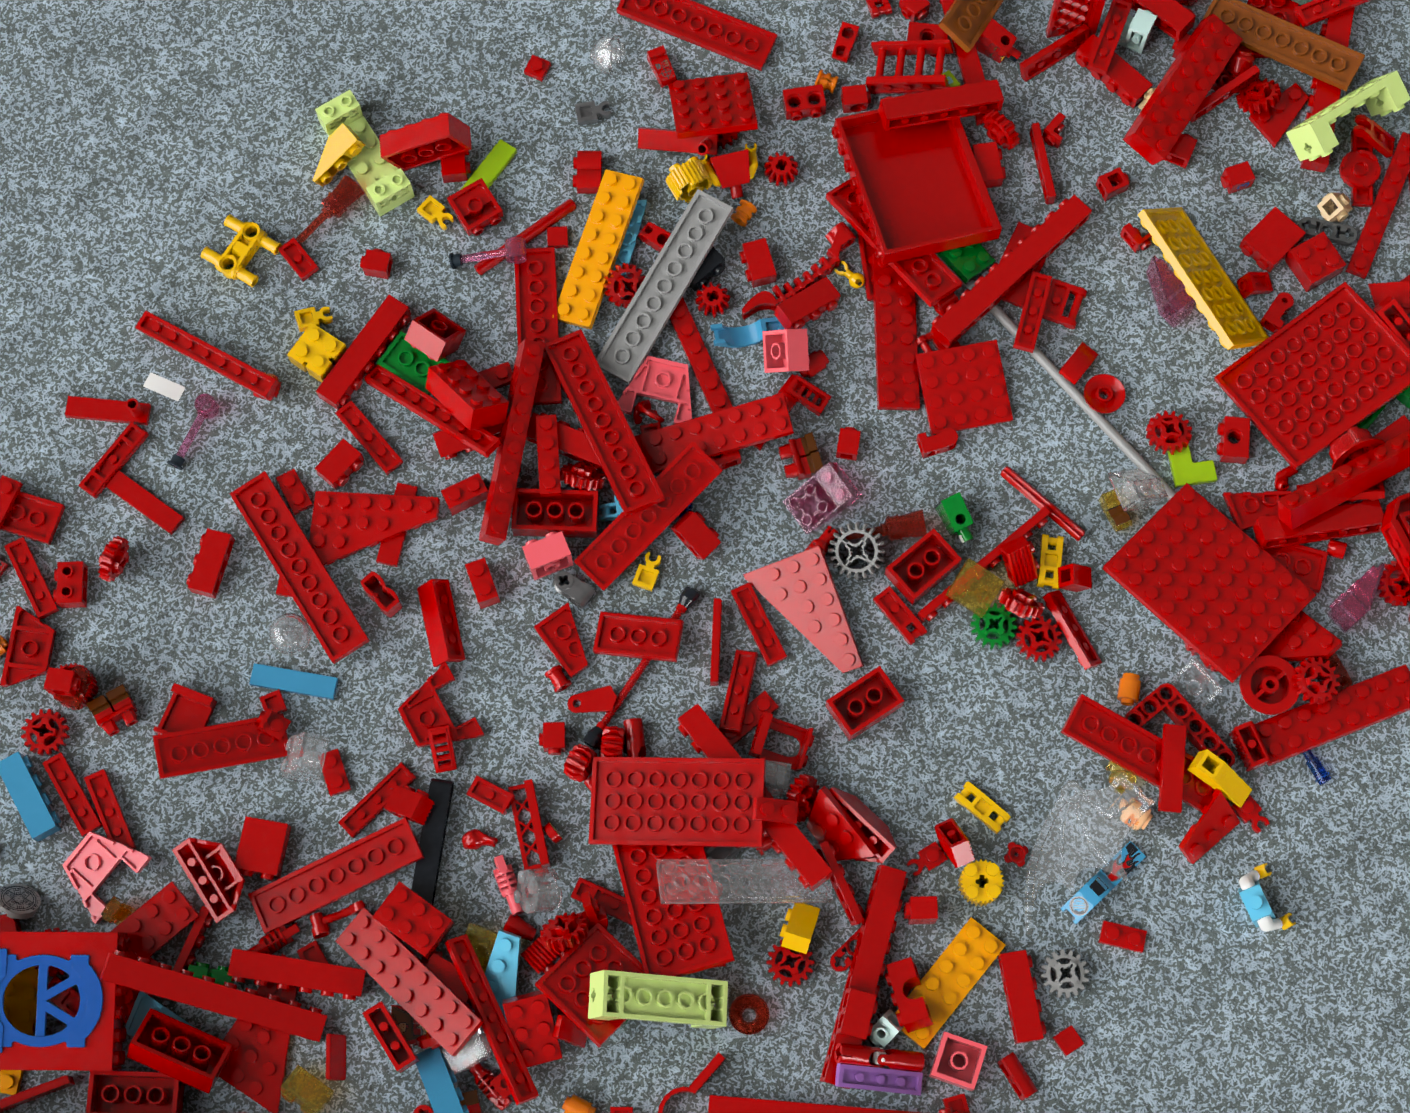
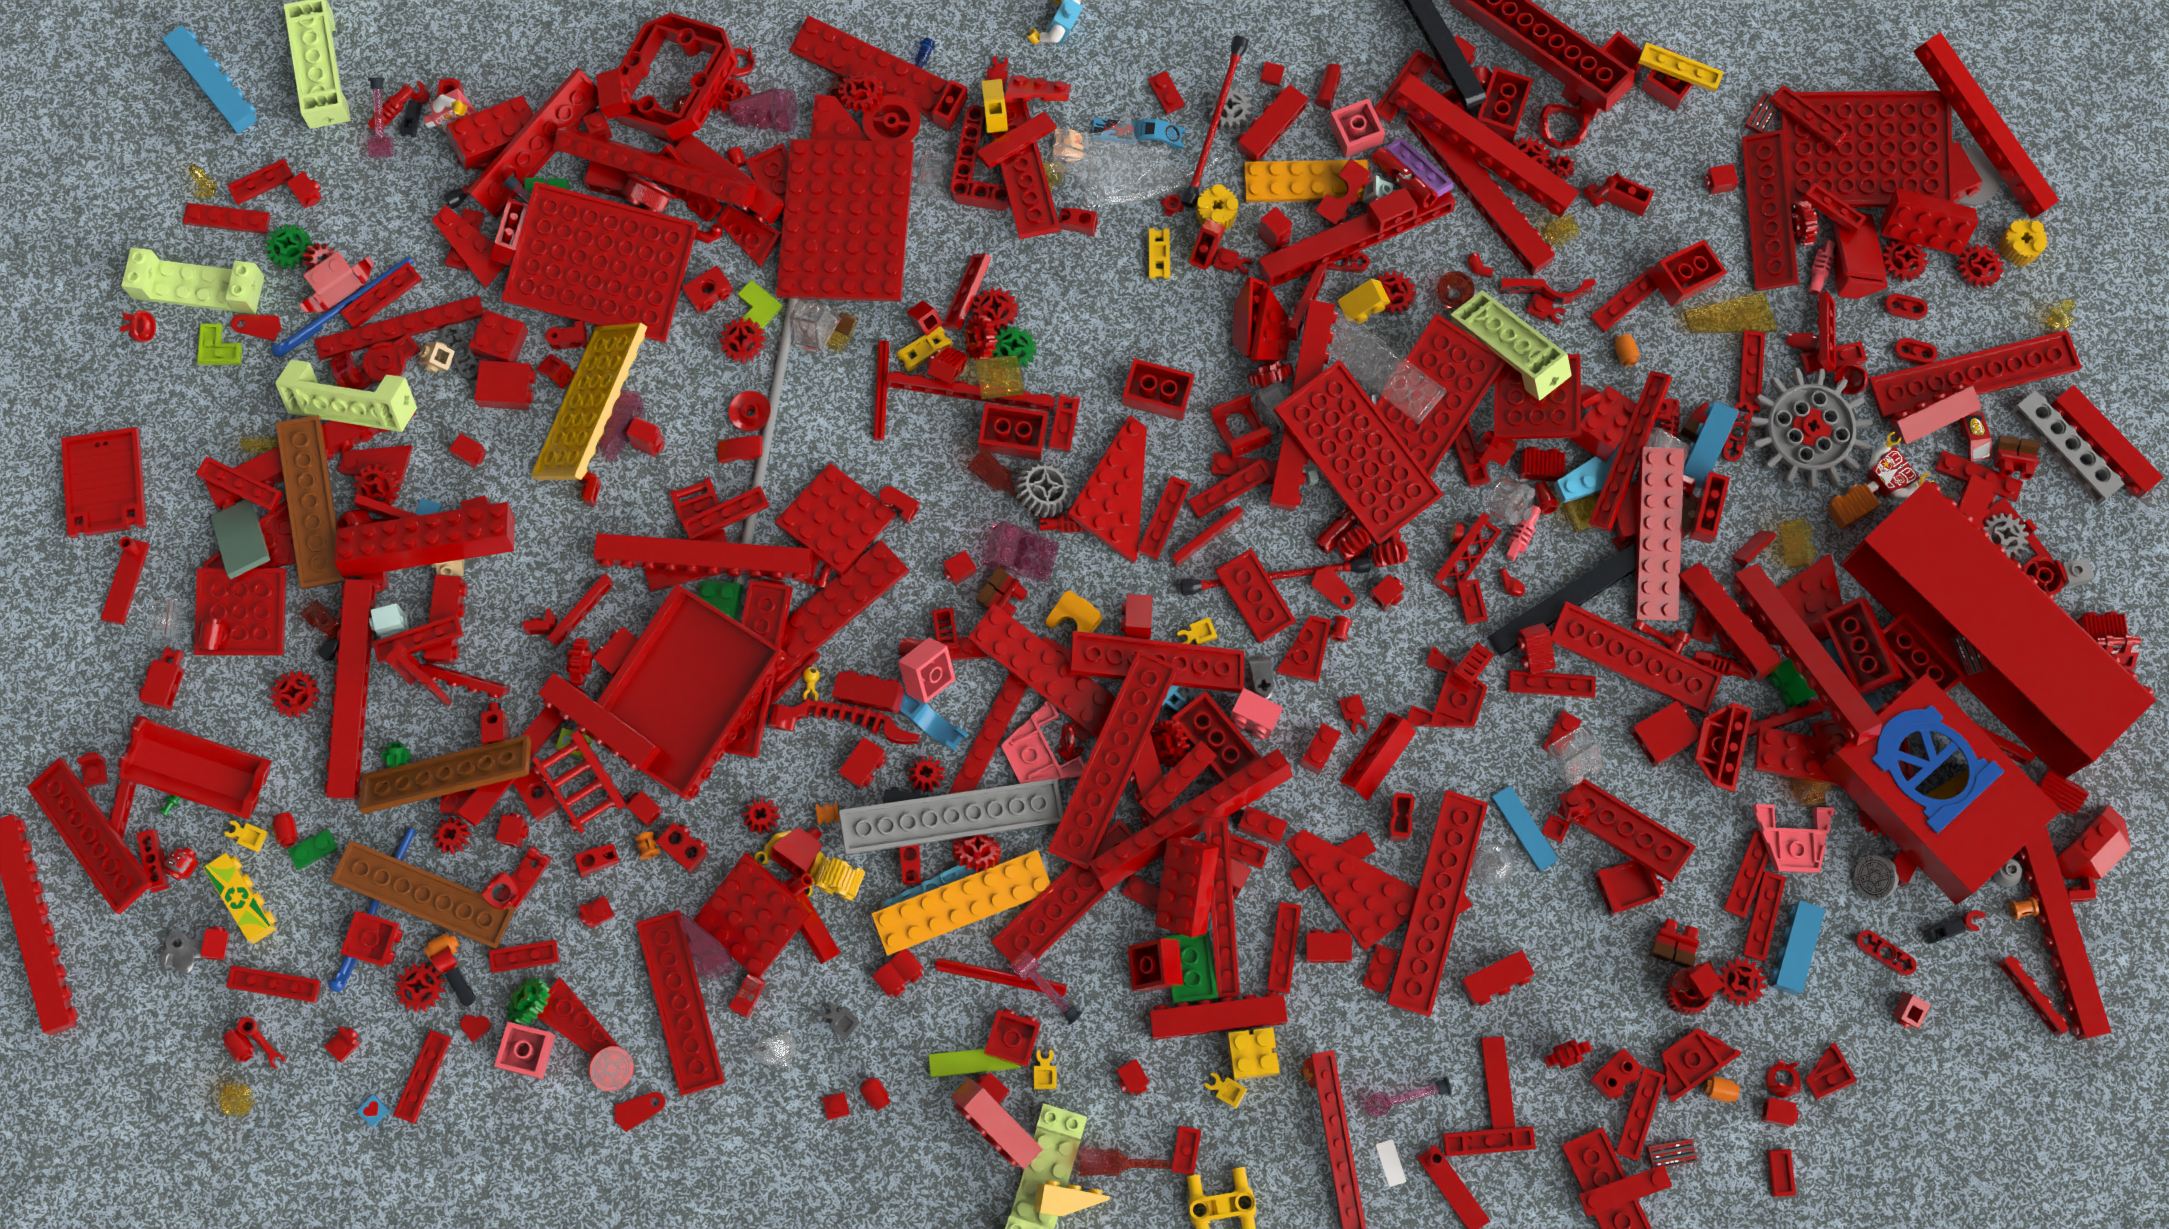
camera: 135 degrees left, 0 degrees up
(413, 920) = (1616, 567): red brick -> none
(464, 467) = (1247, 851): none -> red plate
(490, 635) = (1353, 710): none -> red plate
(521, 95) = (875, 1094): none -> red brick
(557, 237) = (978, 950): red tile -> none
(564, 931) = (1514, 448): red gear -> none
(675, 1075) = (1542, 307): none -> red plate
(713, 59) = (712, 955): none -> clear pink slope
(737, 500) = (1076, 608): none -> light orange piece
(754, 1054) = (1477, 266): none -> red arm
(775, 810) = (1305, 370): red plate -> none
(808, 17) = (596, 912): none -> red bracket
(953, 508) = (950, 440): green torso -> none
(1062, 766) = (1078, 220): none -> red leg
(1108, 1017) = (1191, 194): none -> red hose
(1116, 177) = (549, 534): red brick -> none
(1129, 689) = (978, 218): orange brick -> none
(1143, 301) = (645, 437): none -> red brick
(1211, 120) = (428, 507): none -> dark azure tile
(1364, 40) = (259, 444): none -> clear yellow tile

